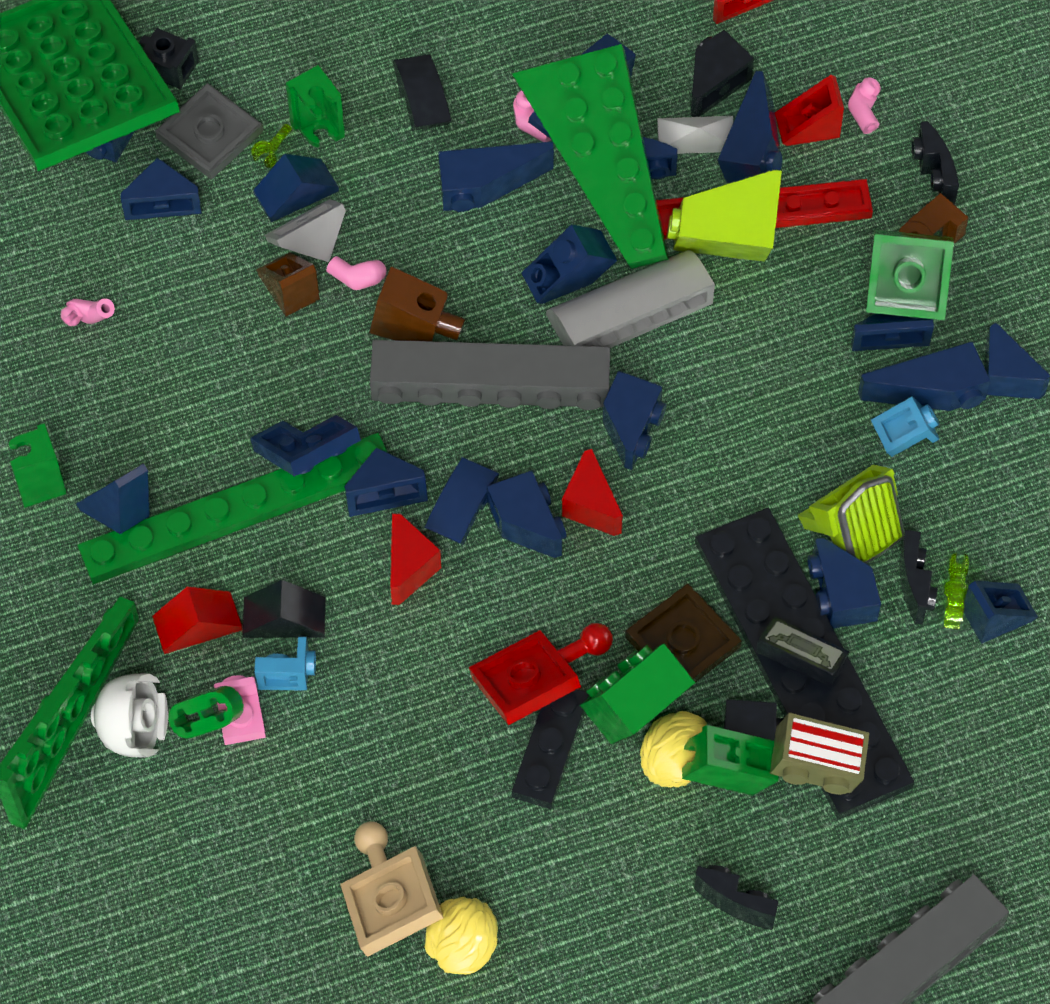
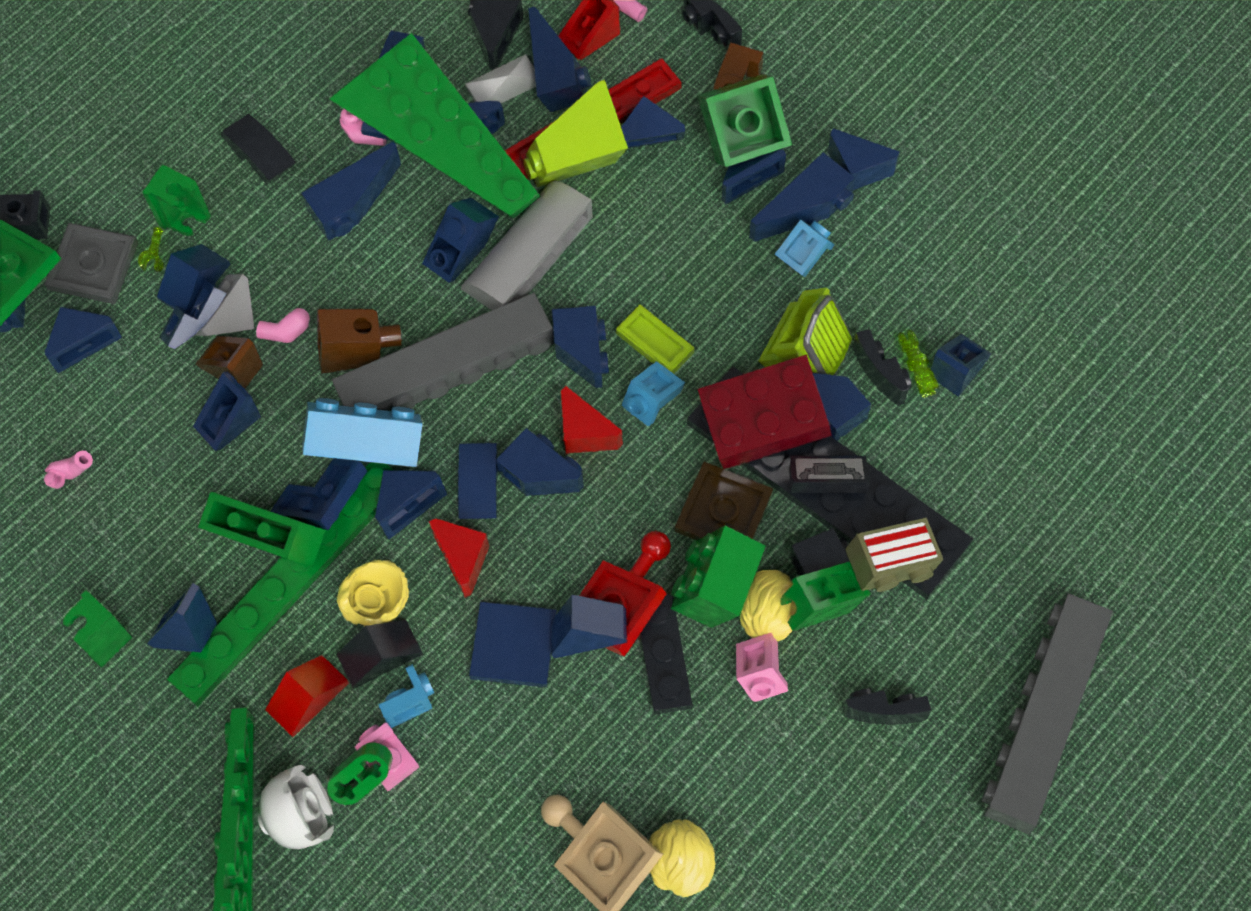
camera: 25 degrees left, 5 degrees up
(234, 447) = (261, 529): none -> green brick
(259, 327) = (226, 413): none -> dark blue slope
(265, 226) = (184, 323): none -> slope
(306, 556) = (373, 593): none -> light yellow hair
(373, 402) = (362, 433): none -> brick
(413, 667) = (512, 644): none -> dark blue tile
(488, 679) = (587, 625): none -> dark blue slope
(631, 799) = (759, 667): none -> bright pink bracket
(675, 494) = (651, 392): none -> dark azure bracket
(707, 449) = (654, 339): none -> lime tile
(768, 561) = (764, 412): none -> dark red brick
(812, 239) = (651, 125): none -> dark blue slope

